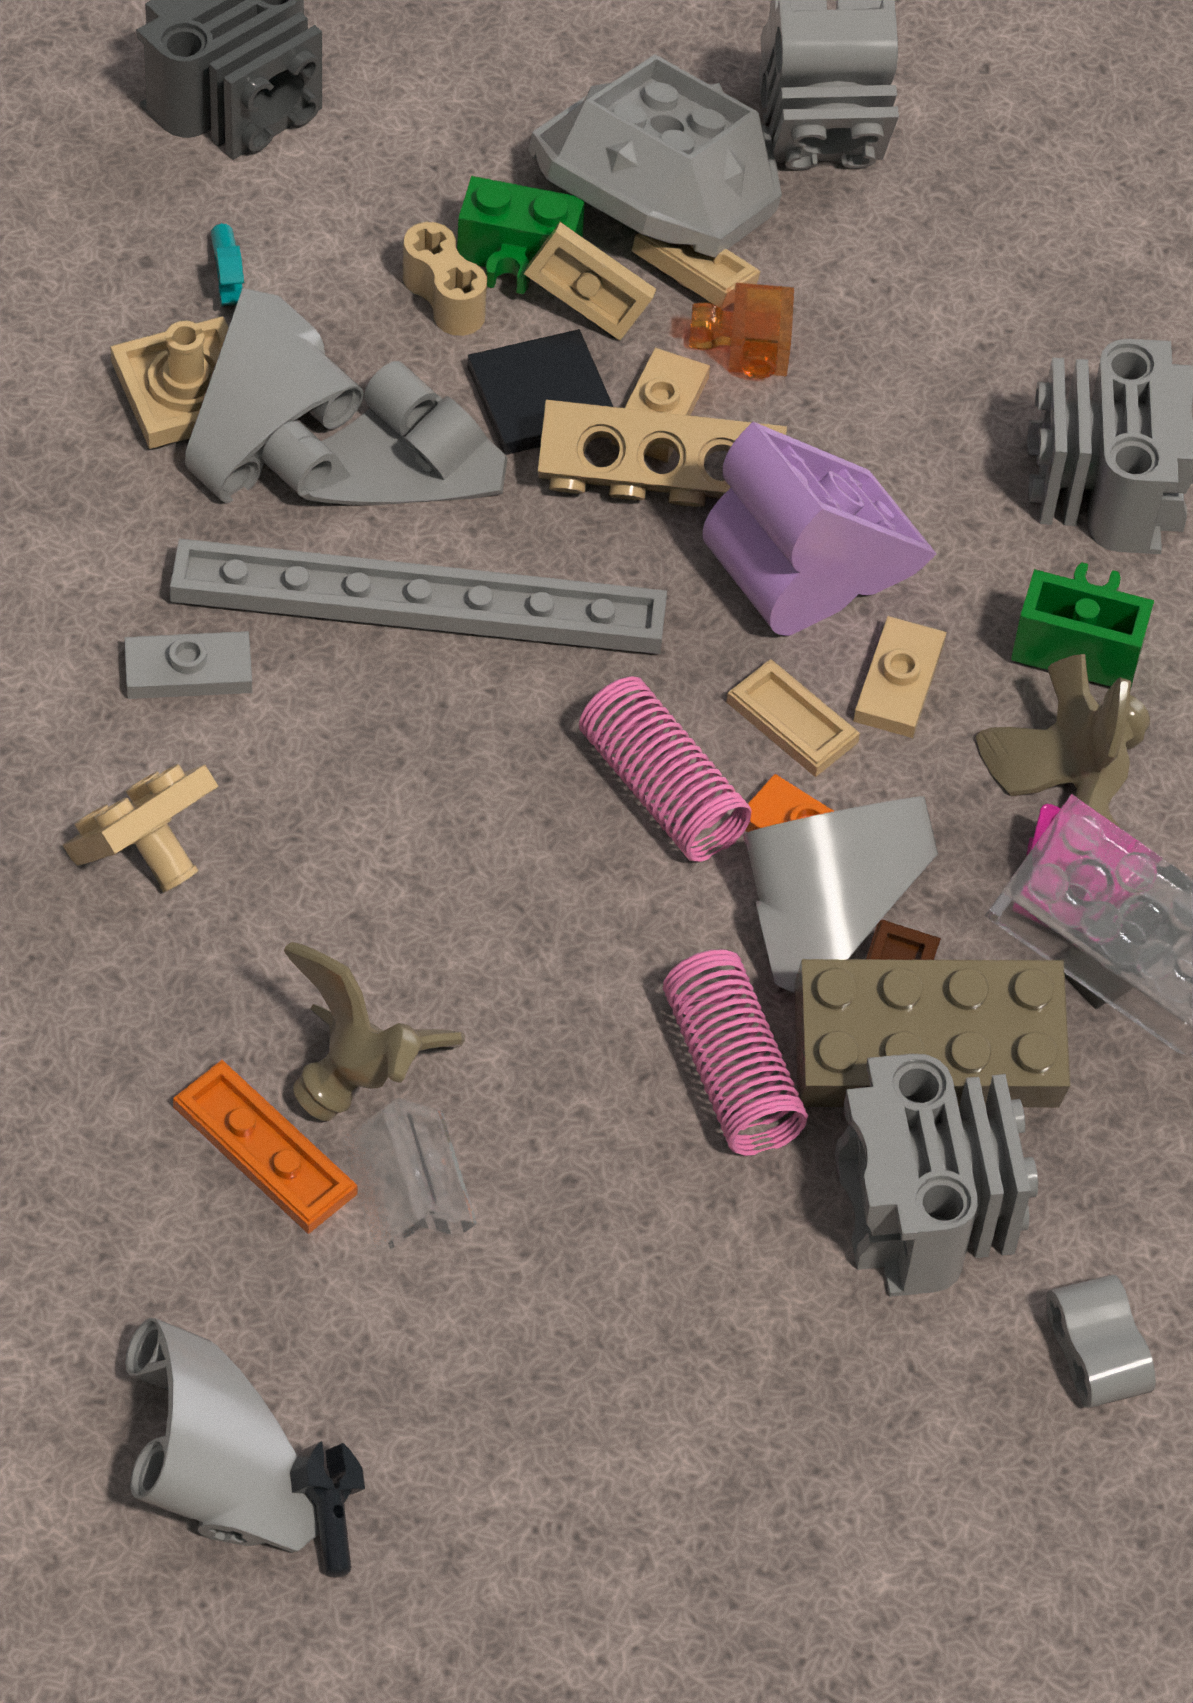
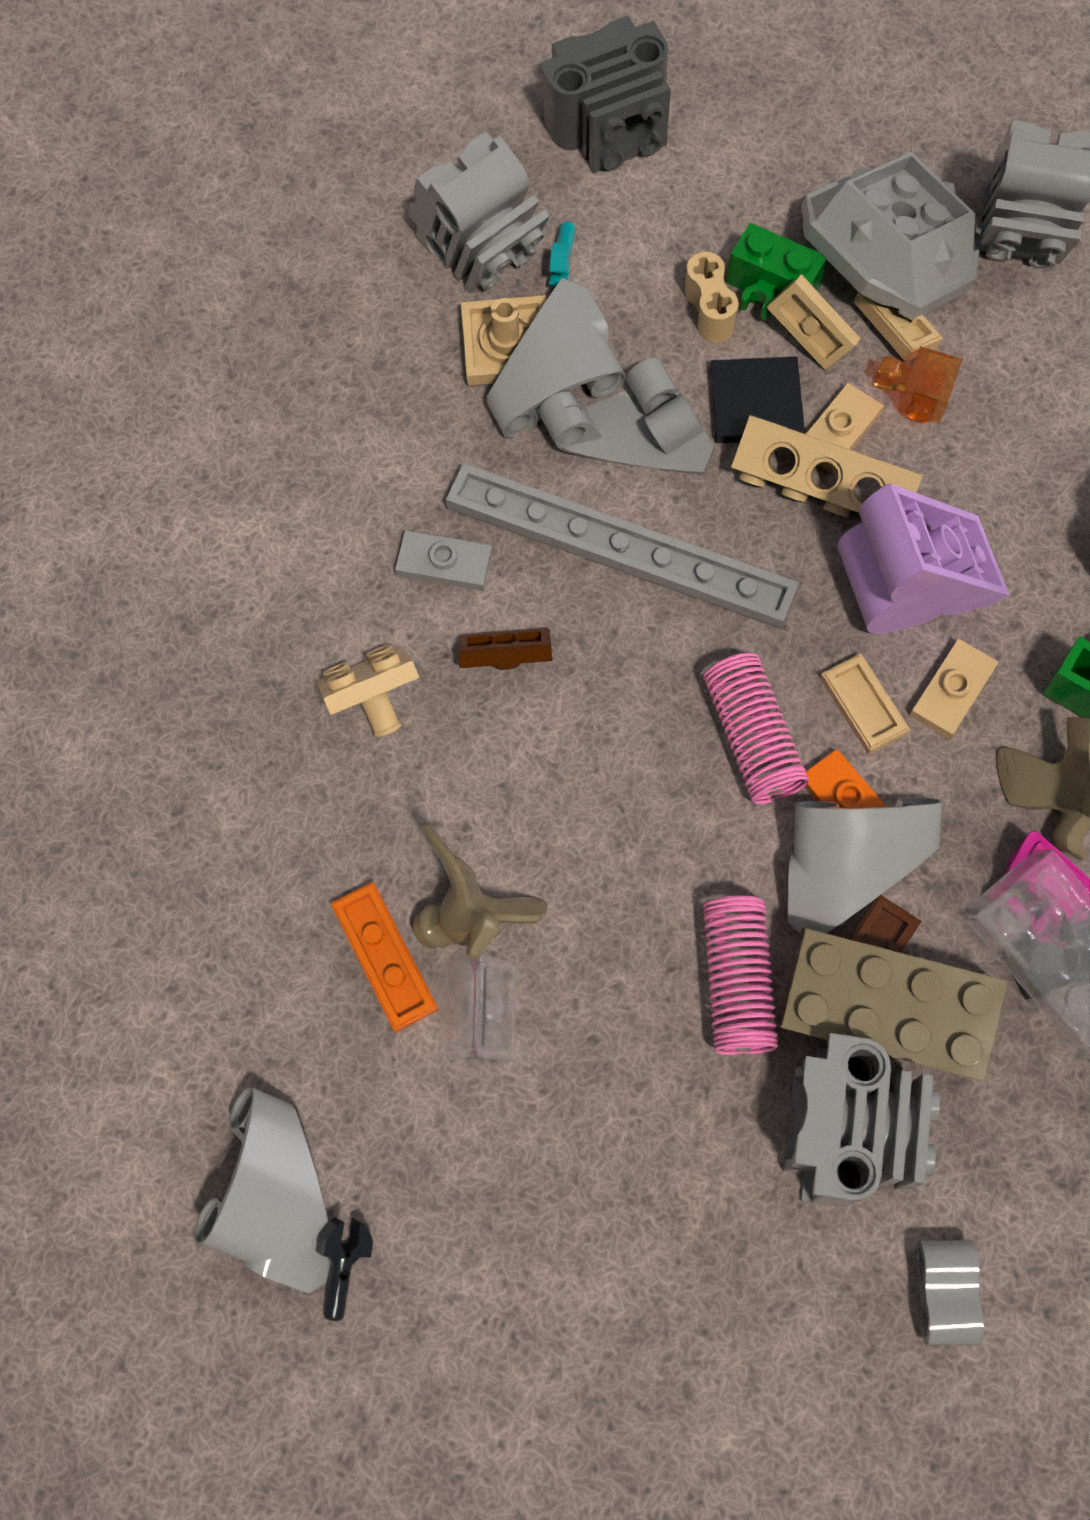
camera: 25 degrees right, 15 degrees up
(107, 229) = (478, 213): none -> light grey piece
(307, 749) = (505, 648): none -> reddish brown plate

